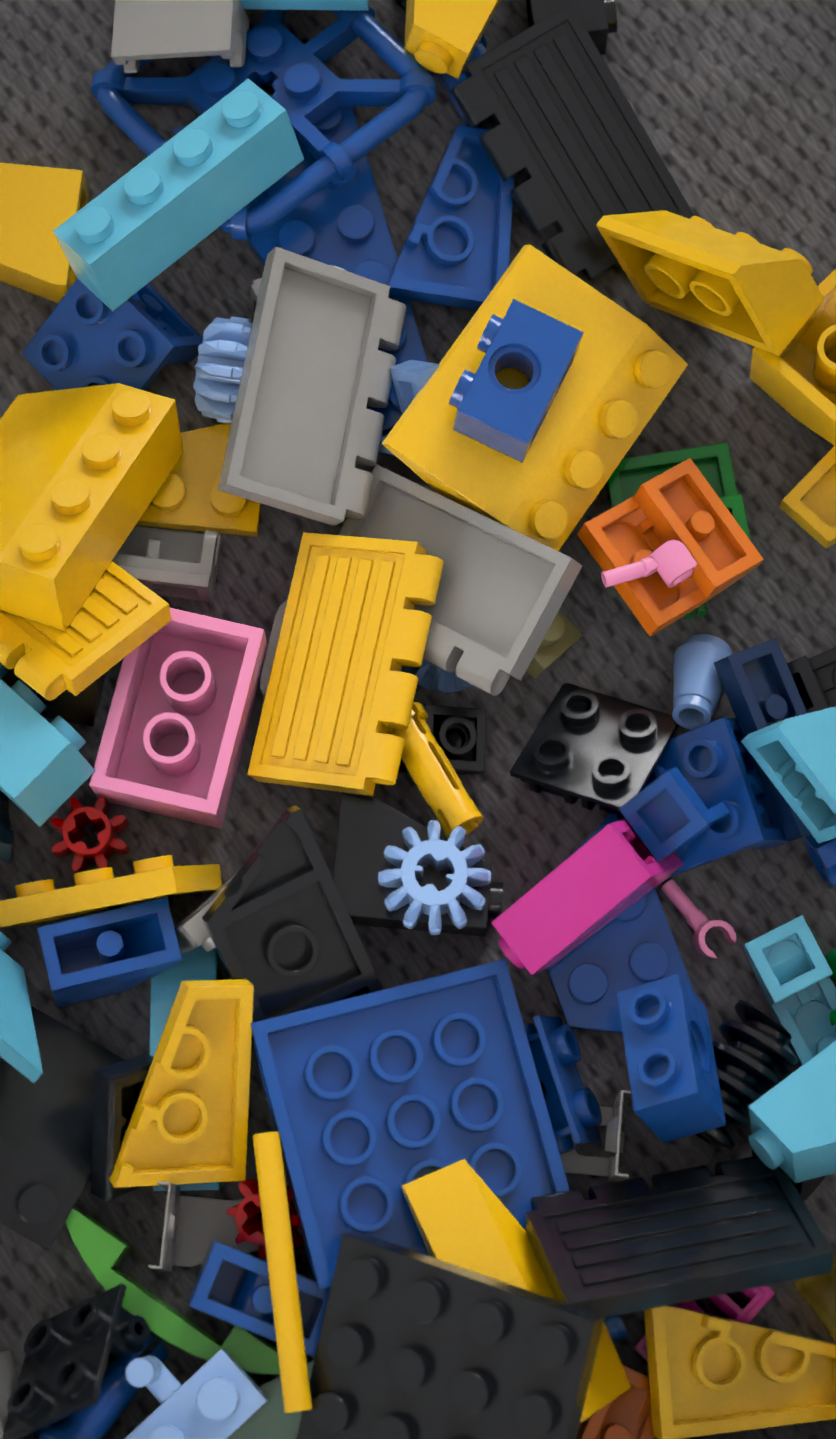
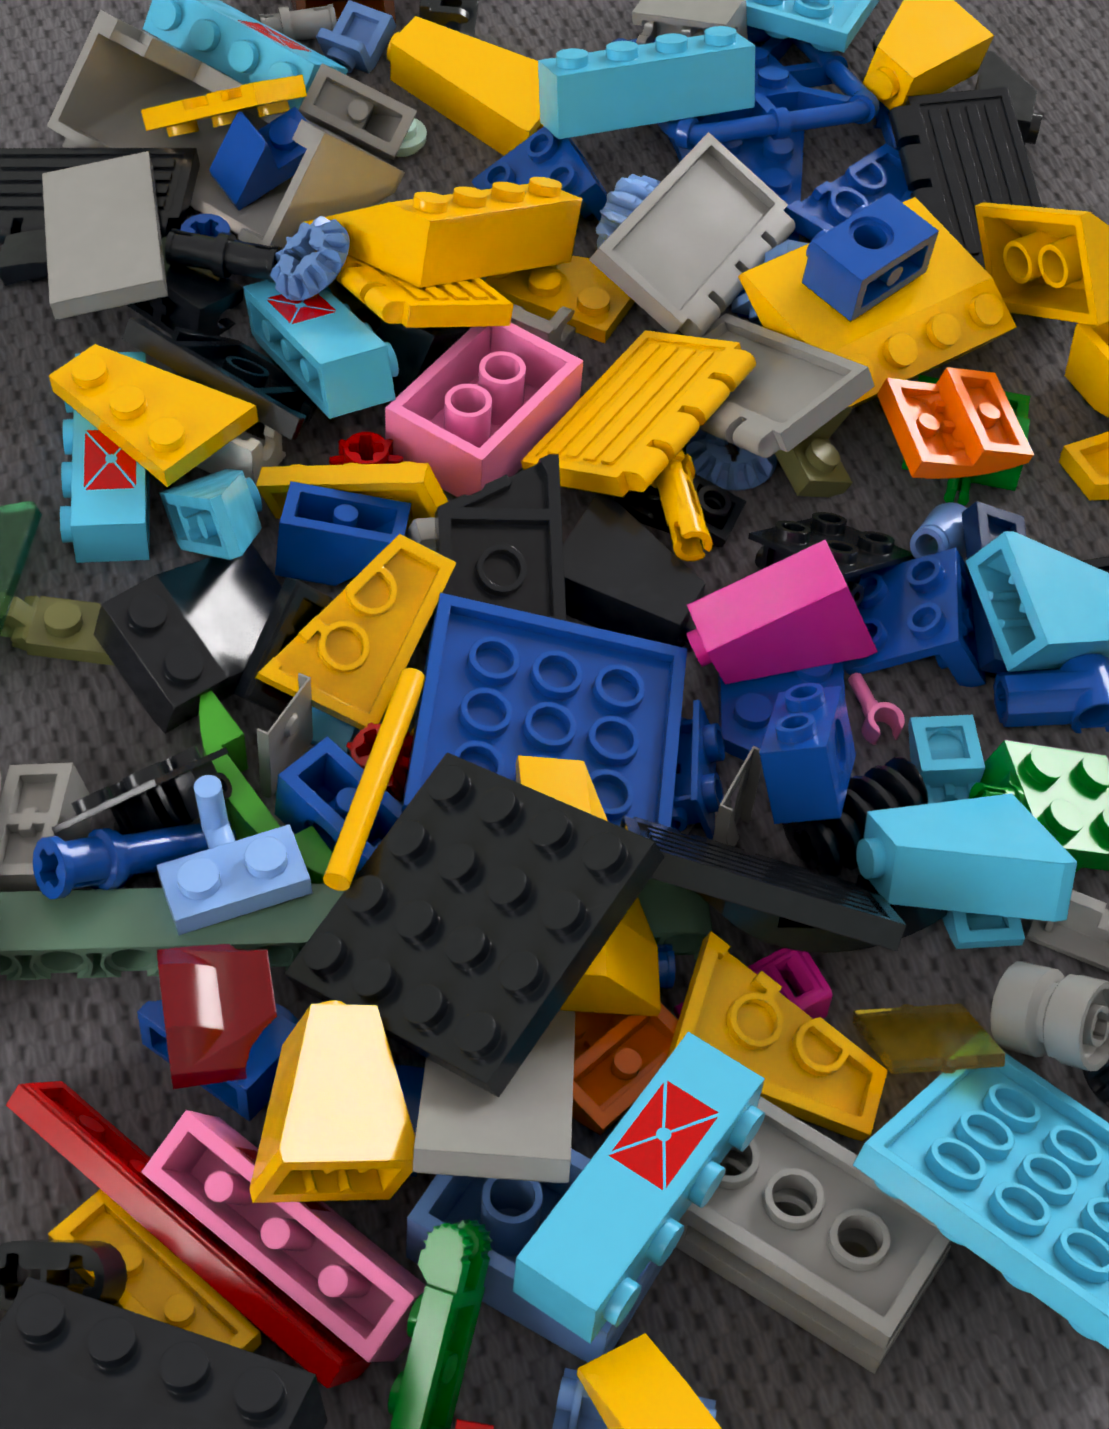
camera: 15 degrees right, 25 degrees down
(441, 856) = (650, 558): light blue gear -> none
(670, 560) = (947, 417): bright pink hand -> none
(670, 814) = (885, 583): blue panel -> none

